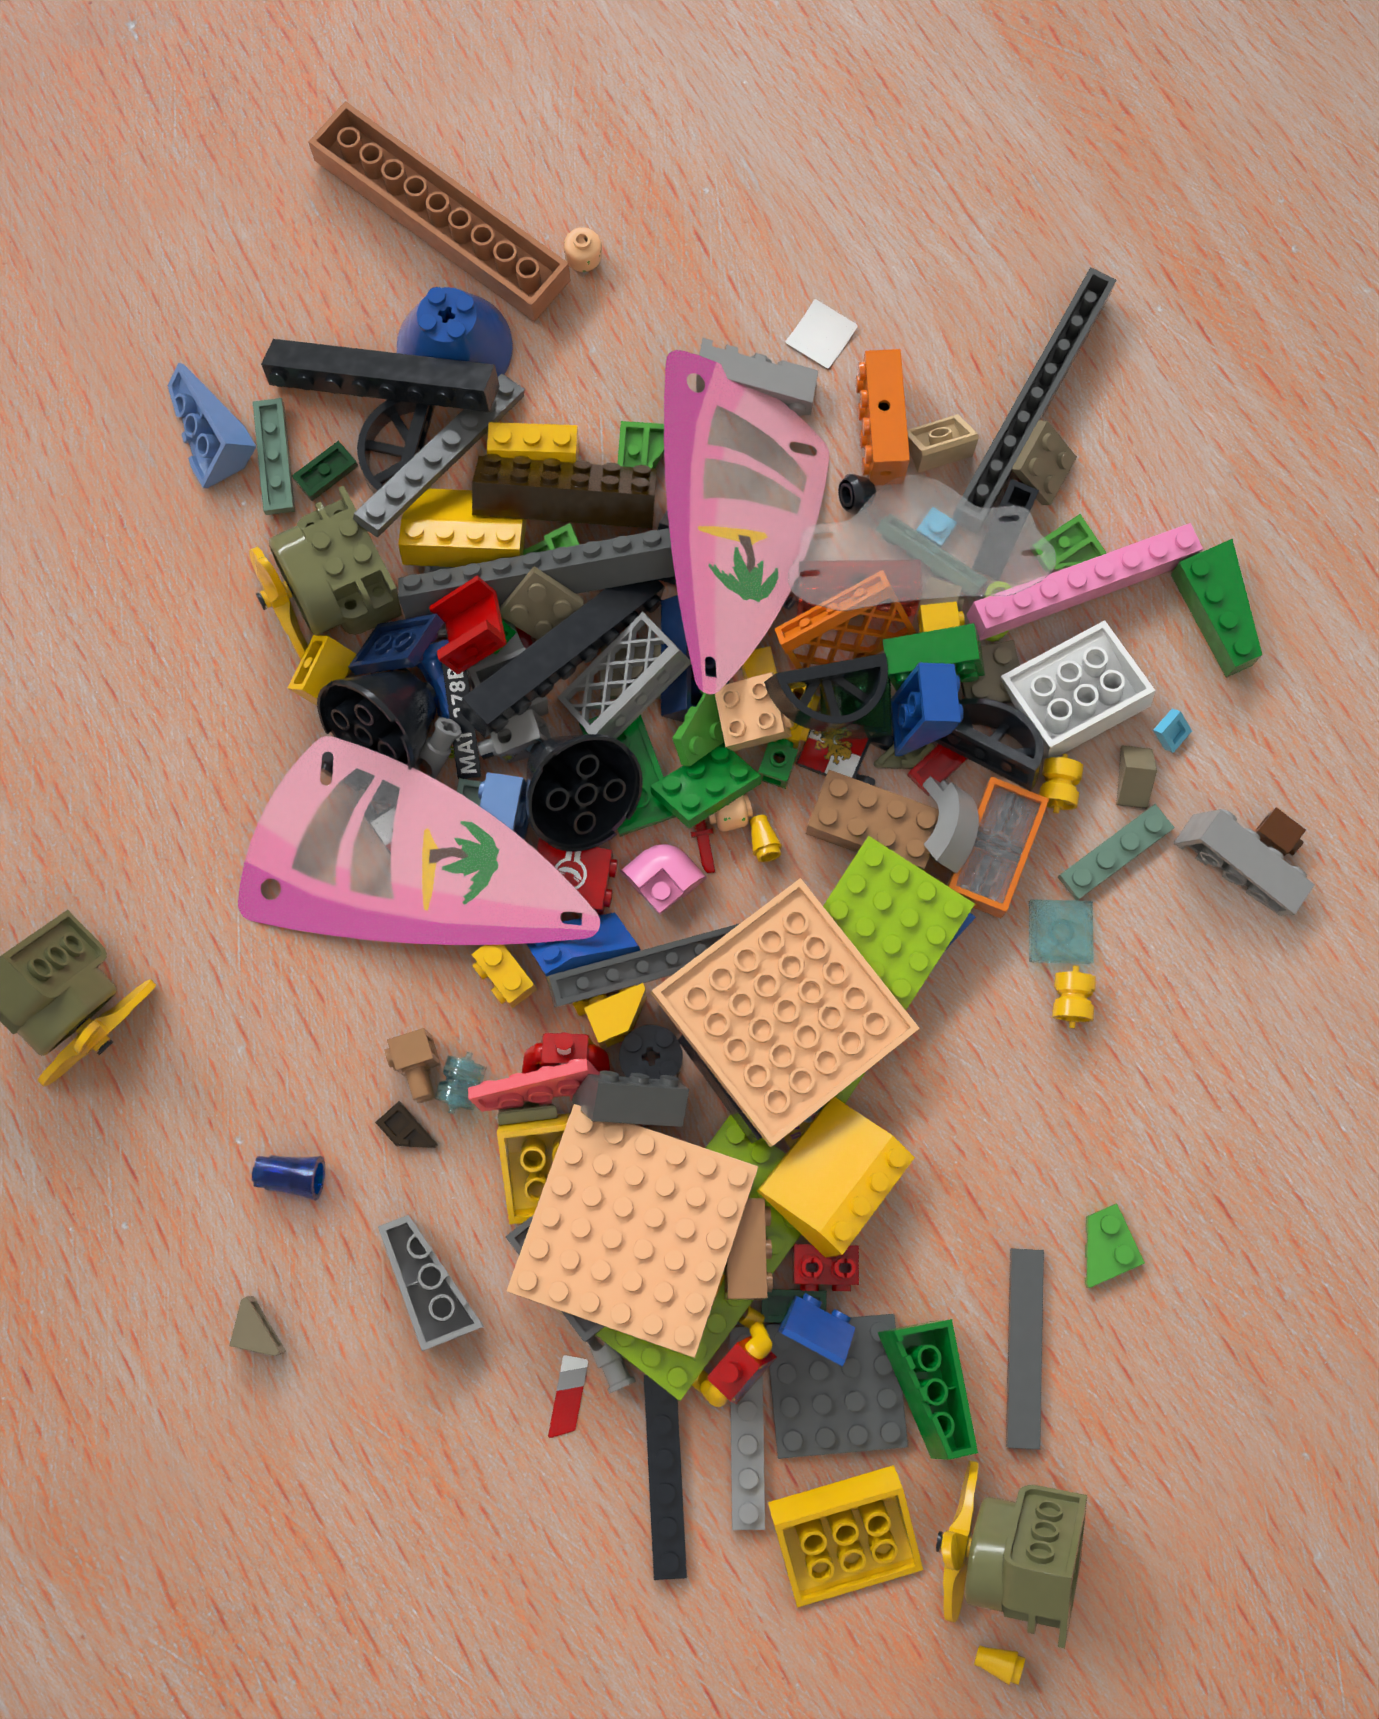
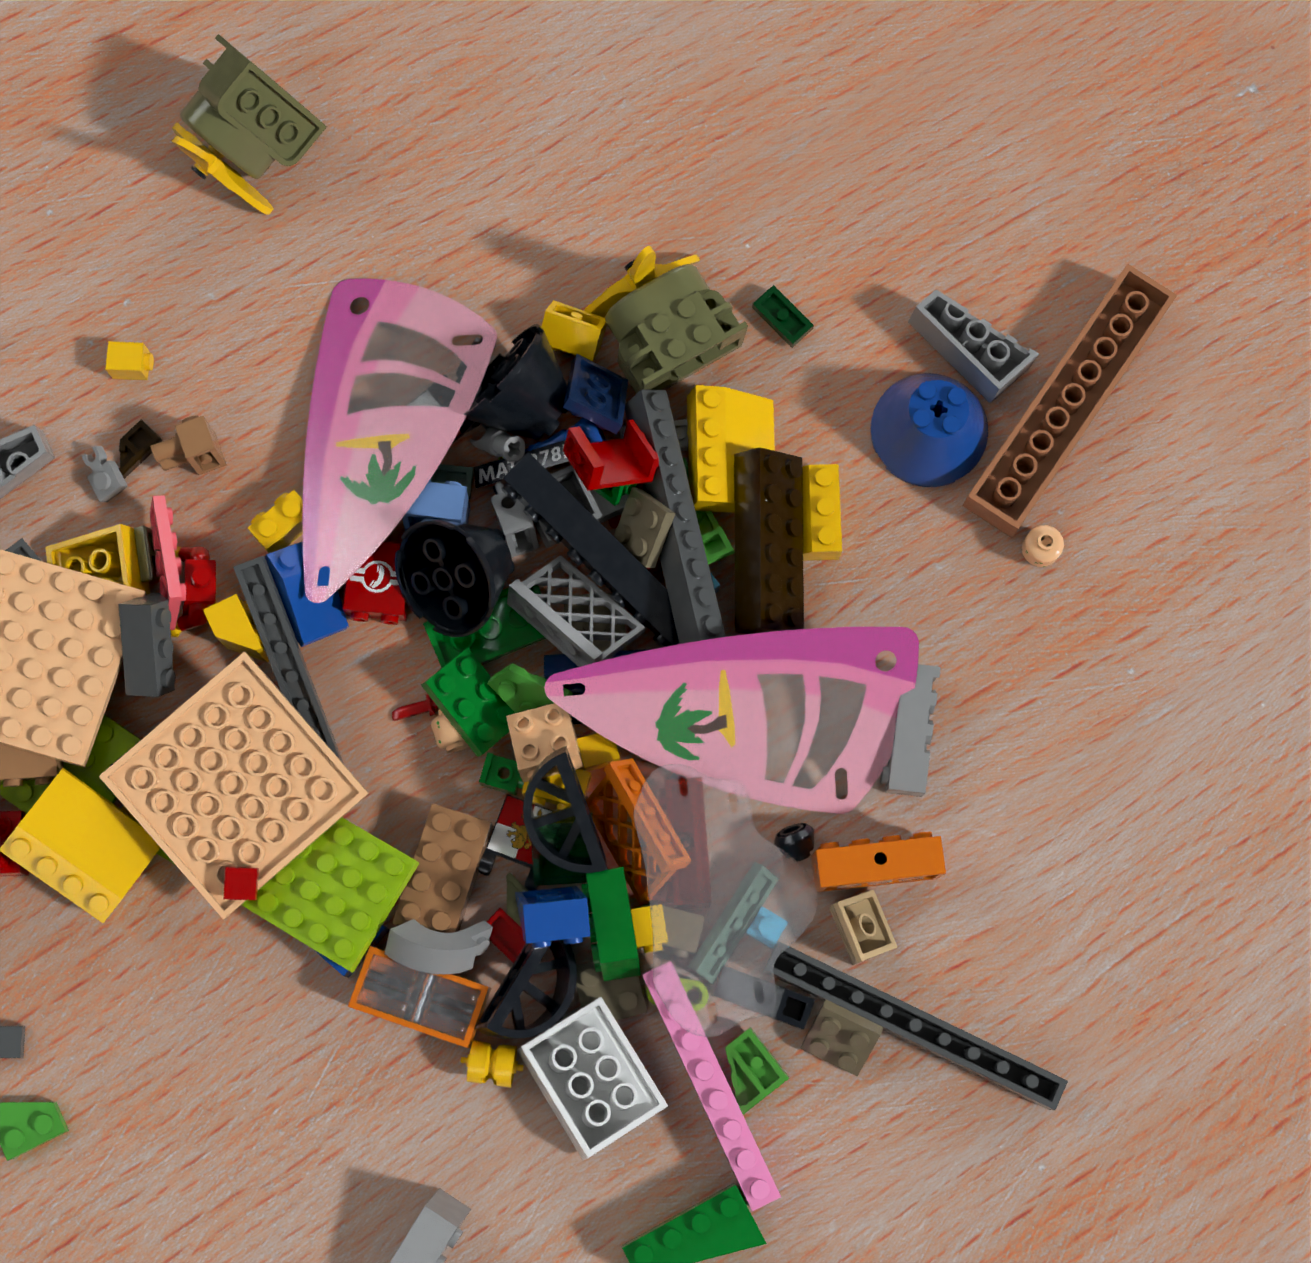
camera: 85 degrees right, 0 degrees up
(214, 434) = (810, 212): medium blue wedge -> none
(273, 456) = (794, 267): sand green plate -> none
(290, 1175) = (89, 348): clear blue plant -> none
(309, 1132) = (128, 360): none -> yellow brick
(376, 294) = (971, 345): none -> light grey wedge
(381, 375) = (878, 357): black brick -> none
(414, 437) = (808, 396): black window -> none
(434, 460) = (797, 418): dark grey plate -> none
(438, 1160) = (106, 476): none -> light grey plate
(460, 1075) = (181, 493): clear light blue wheel -> none
(640, 444) = (830, 612): bright green wing -> none
(653, 1039) = (189, 655): black brick -> none
(663, 875) = (384, 668): bright pink brick -> none
(764, 840) = (423, 765): yellow cone -> none
(821, 334) = (976, 799): white sticker -> none
(886, 1005) = (241, 883): none -> red tile
(1061, 931) = (341, 1070): clear light blue plate -> none
(1074, 991) = (267, 1082): yellow wheel -> none
(1115, 852) = (426, 1126): sand green plate -> none
(1135, 776) = (508, 1145): dark tan slope -> none
(1172, 730) = (556, 1183): medium azure plate -> none

